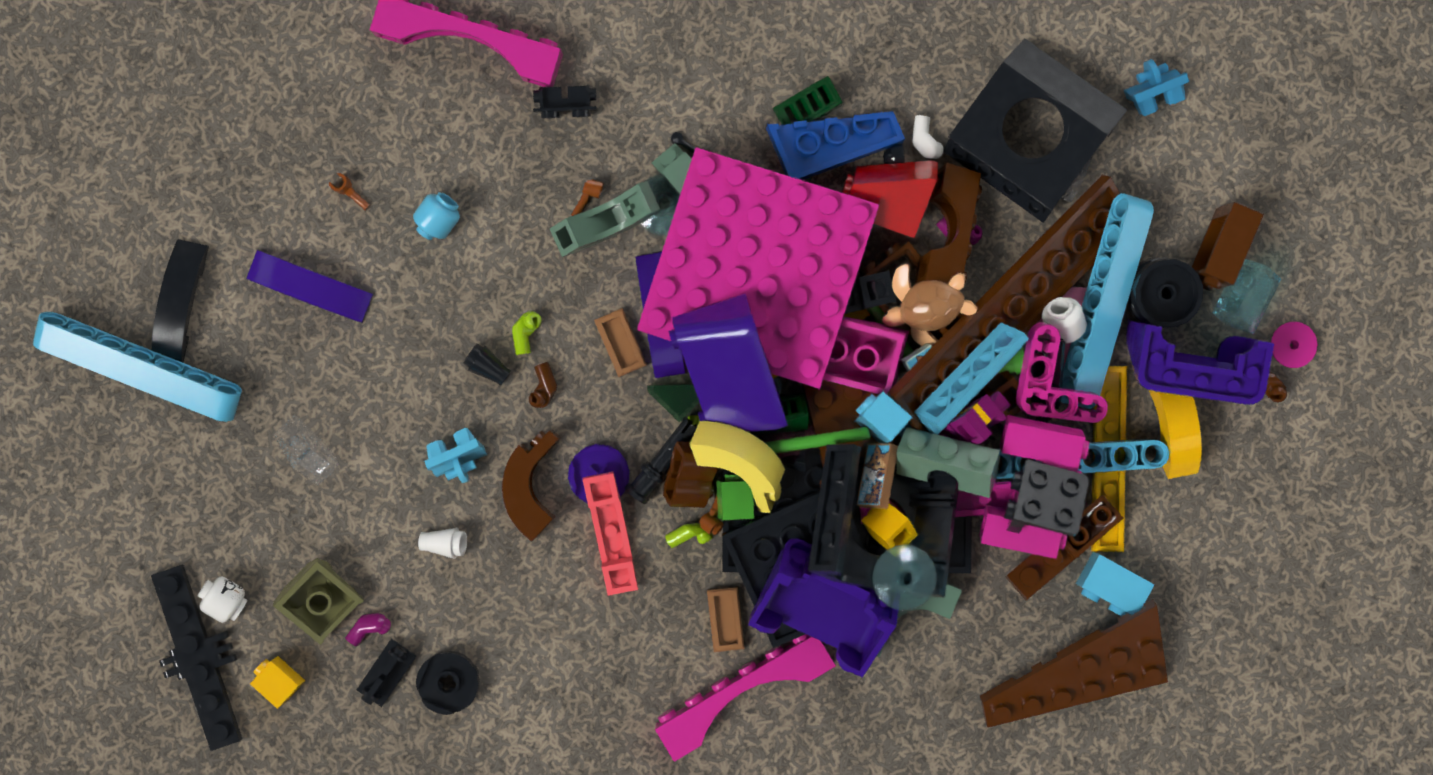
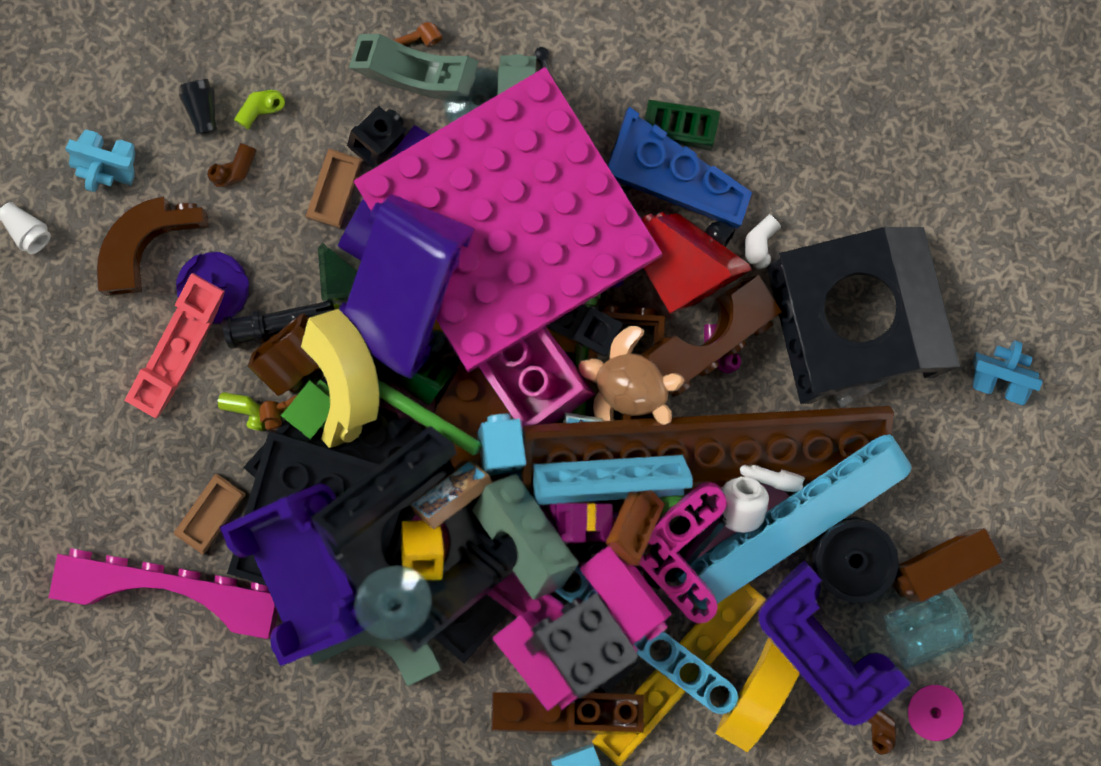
camera: 45 degrees right, 5 degrees down
(621, 294) = (375, 145): none -> black brick
(1013, 395) = (635, 525): none -> dark orange plate
(1073, 283) = (779, 480): none -> white piece

